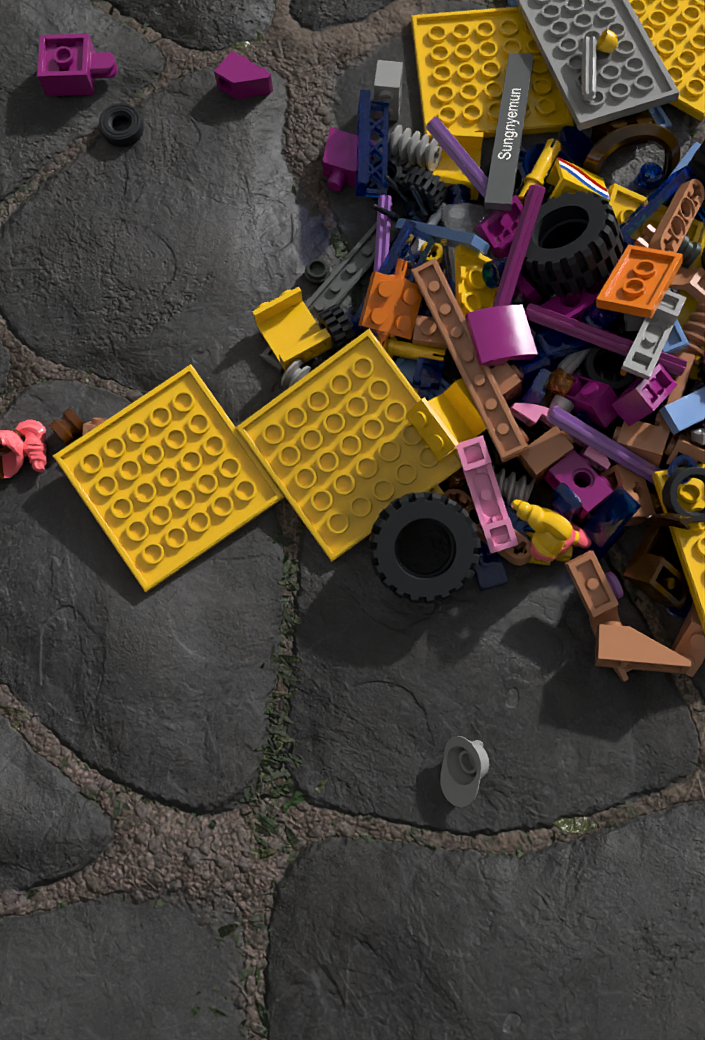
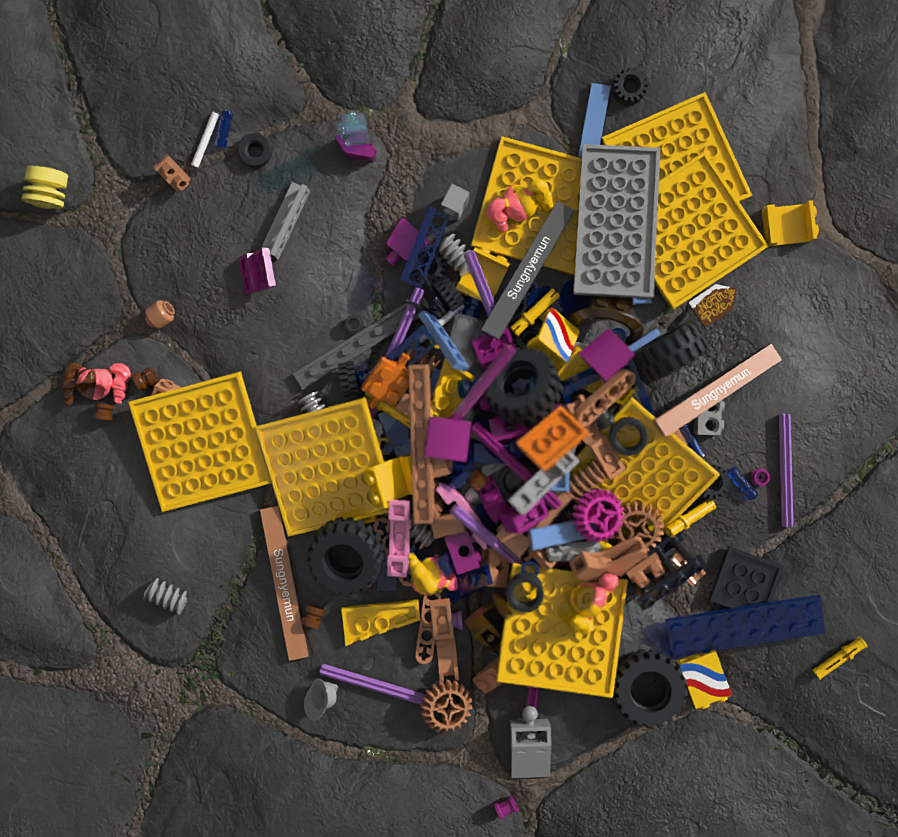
camera: 15 degrees right, 15 degrees up
(23, 487) = (103, 411): none -> reddish brown wheel
(26, 176) = (172, 173): none -> nougat hips
(56, 135) = (205, 139): none -> white bar
(61, 342) = (159, 314): none -> nougat head
(71, 65) = (233, 88): magenta brick -> none
(75, 115) = (224, 129): none -> clear blue axle
(171, 249) = (257, 271): none -> magenta slope
(186, 186) = (286, 219): none -> light grey fence
(189, 703) = (166, 596): none -> light grey piece
(236, 42) = (353, 128): none -> clear light blue brick
(291, 329) = (318, 366): yellow panel -> none
(351, 629) = (284, 583): none -> nougat tile
(407, 653) = (312, 617): none -> reddish brown wheel
(468, 63) = (519, 203): none -> hair
(491, 631) = (370, 619): none -> yellow wing
(536, 722) = (371, 684): none -> medium lavender axle
(569, 612) = (425, 625): none -> nougat beam
(588, 82) = (599, 250): light grey axle -> none
(607, 41) = (622, 233): yellow hinge -> none
(629, 649) = (447, 666): nougat slope -> none
(639, 694) = (459, 708): none -> nougat gear
(655, 174) = (607, 354): none -> magenta slope

